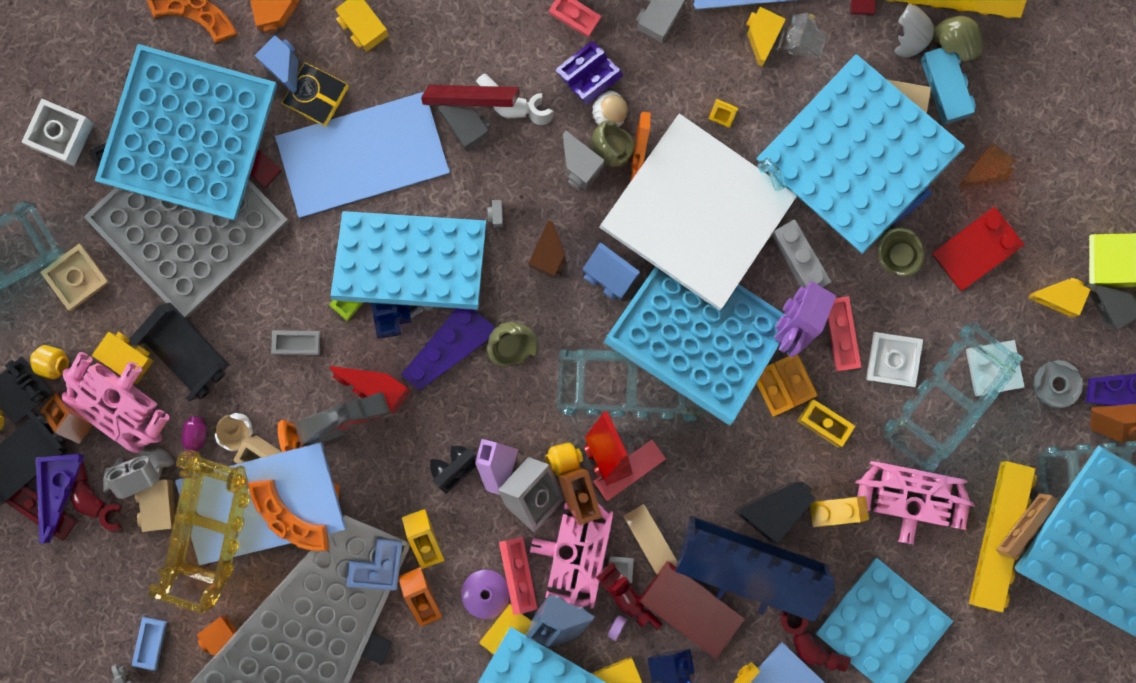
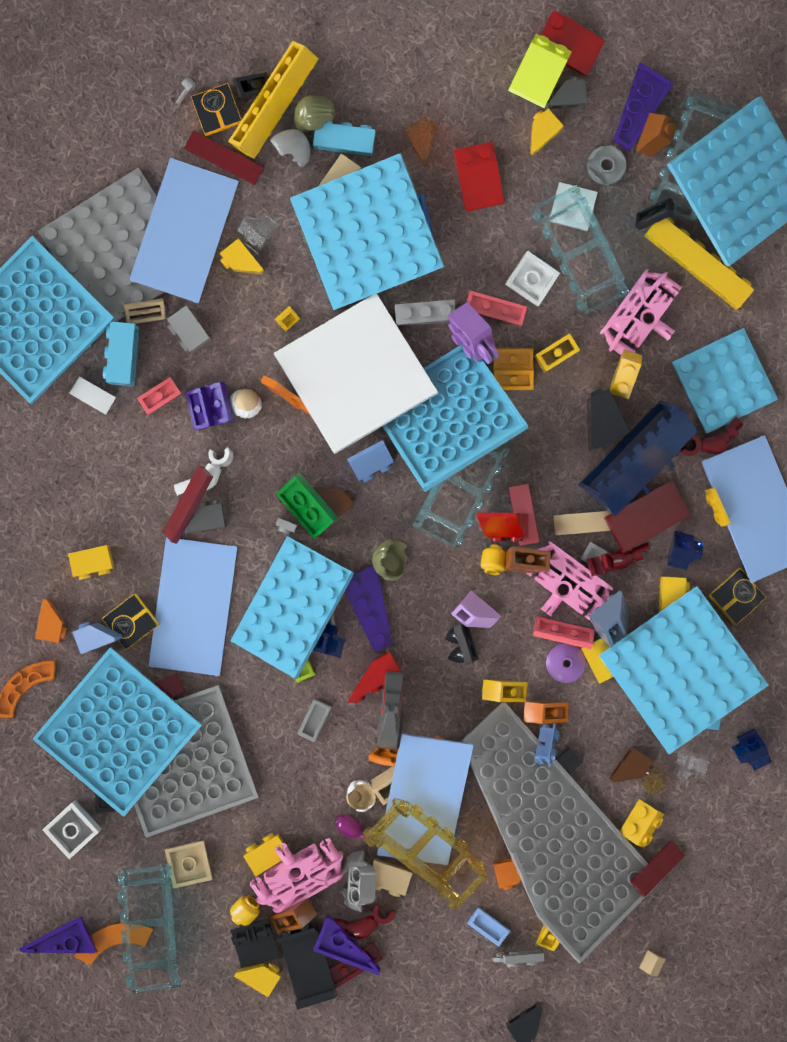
camera: 65 degrees left, 5 degrees up
(182, 349) = (282, 807): black panel -> none
(283, 521) = (447, 787): orange tile -> none
(374, 618) = (549, 737): none -> medium blue hinge
(383, 572) = (516, 733): medium blue tile -> none
(528, 225) = (306, 505): none -> green plate
(532, 493) = (508, 594): light grey slope -> none
(581, 163) = (277, 445): light grey slope -> none
(612, 144) = (274, 415): olive piece -> none
(617, 628) = (635, 577): lavender tile -> none
(774, 172) = (353, 302): clear light blue arm -> none
(900, 252) = (455, 236): olive piece -> none
(1027, 526) = (700, 242): medium nougat plate -> none
(1032, 460) = (654, 214): none -> black tile

